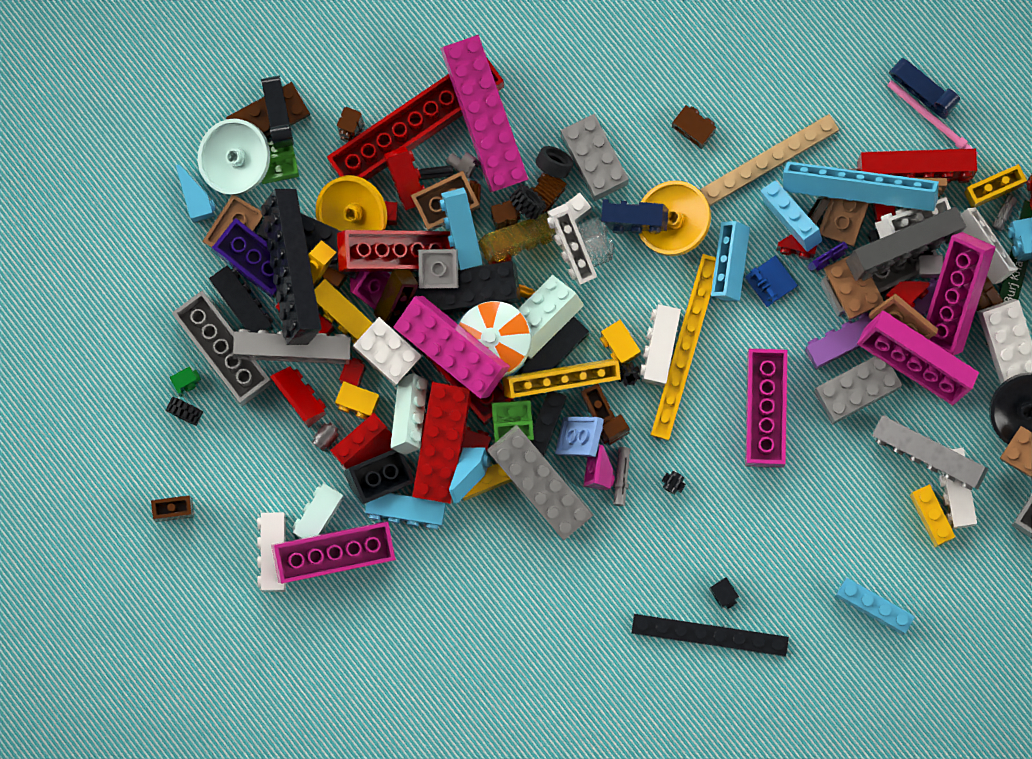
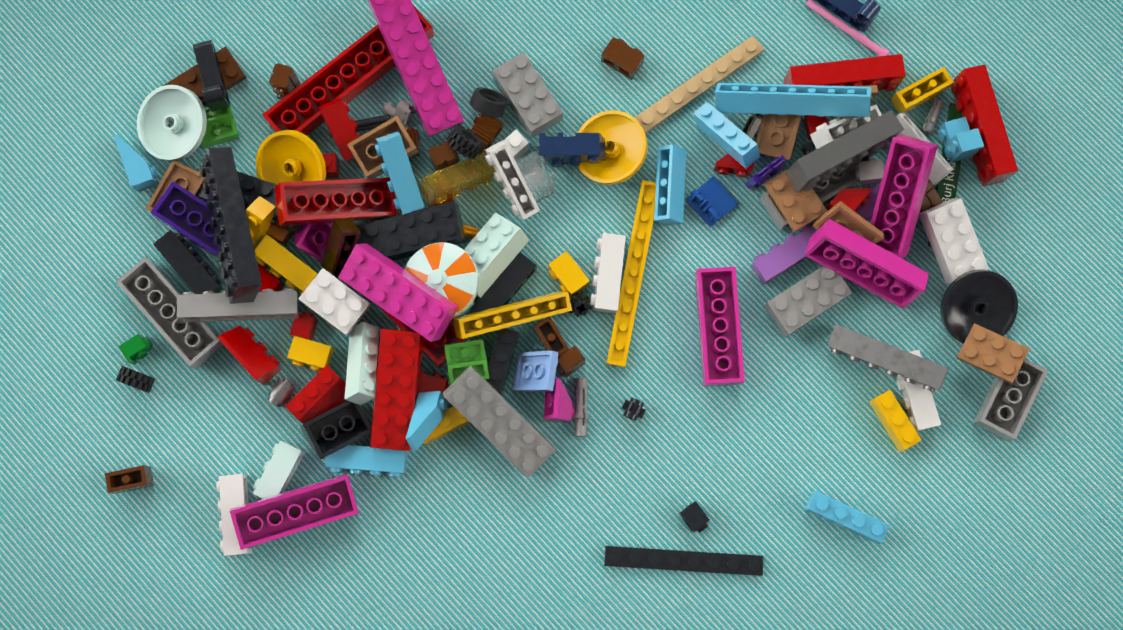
camera: 10 degrees left, 0 degrees up
(438, 268) = (379, 214): light grey plate -> none

